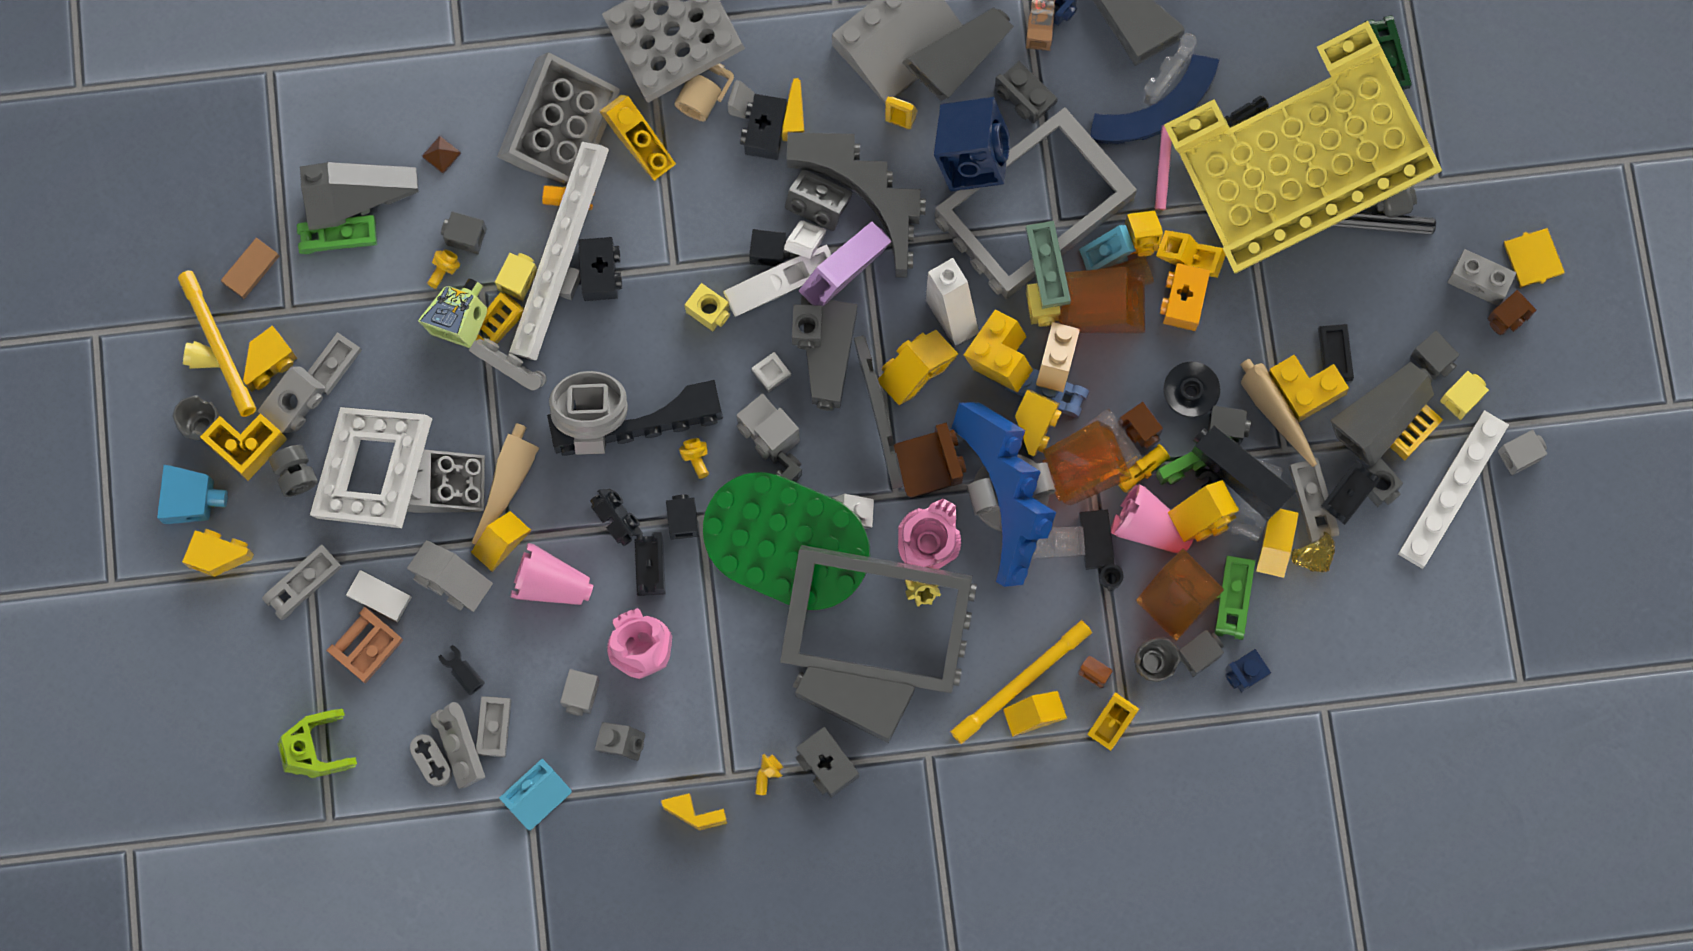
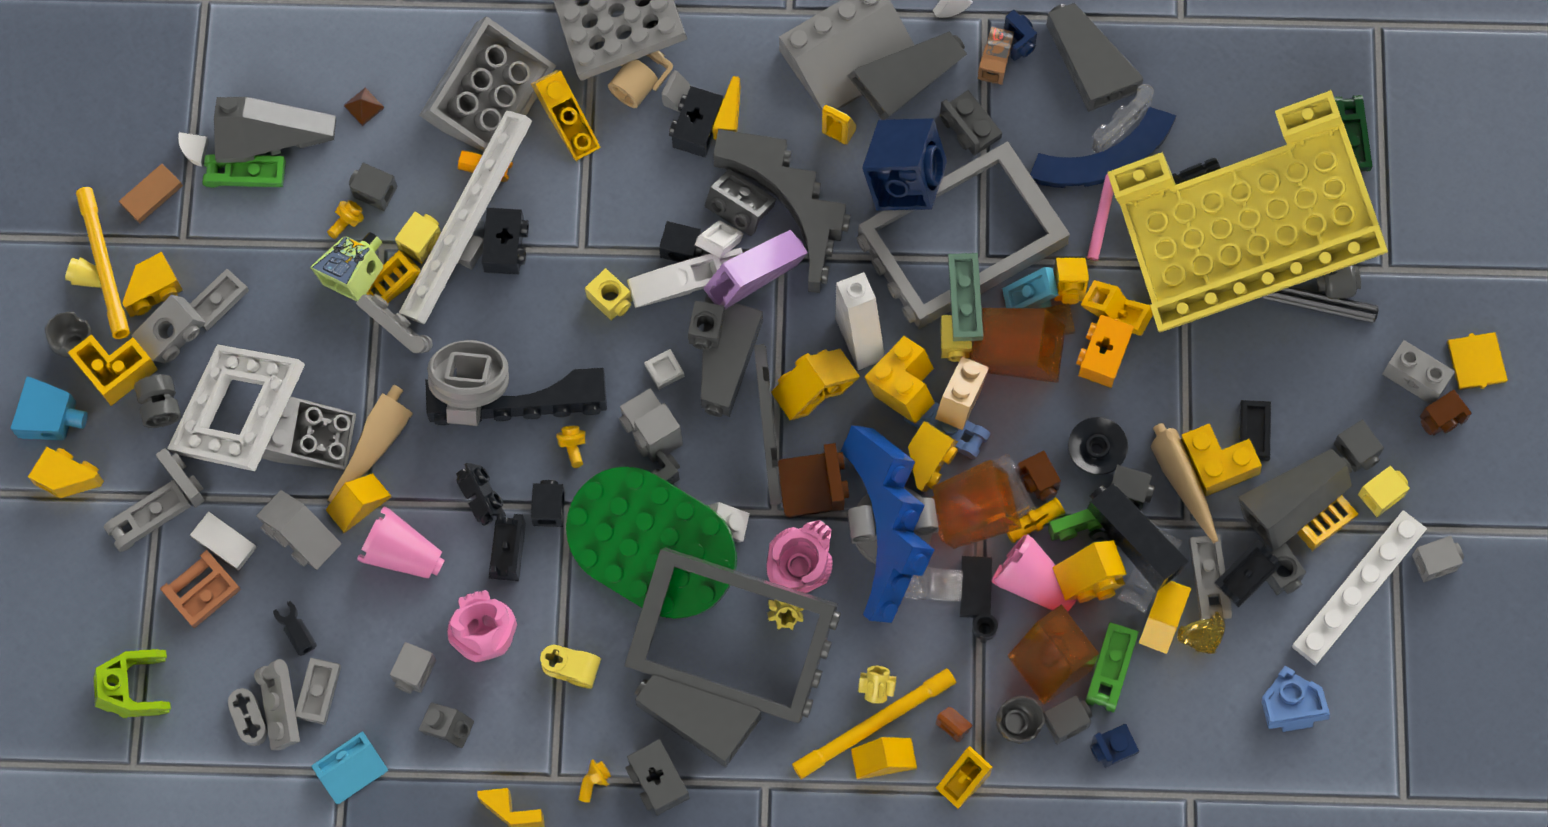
camera: 10 degrees right, 5 degrees down
(284, 217) = (193, 147): none -> white tile
(320, 531) = (175, 466): none -> light grey plate
(734, 670) = (575, 666): none -> light yellow piece
(1018, 645) = (877, 684): none -> light yellow gear
(1408, 606) = (1294, 702): none -> medium blue plate

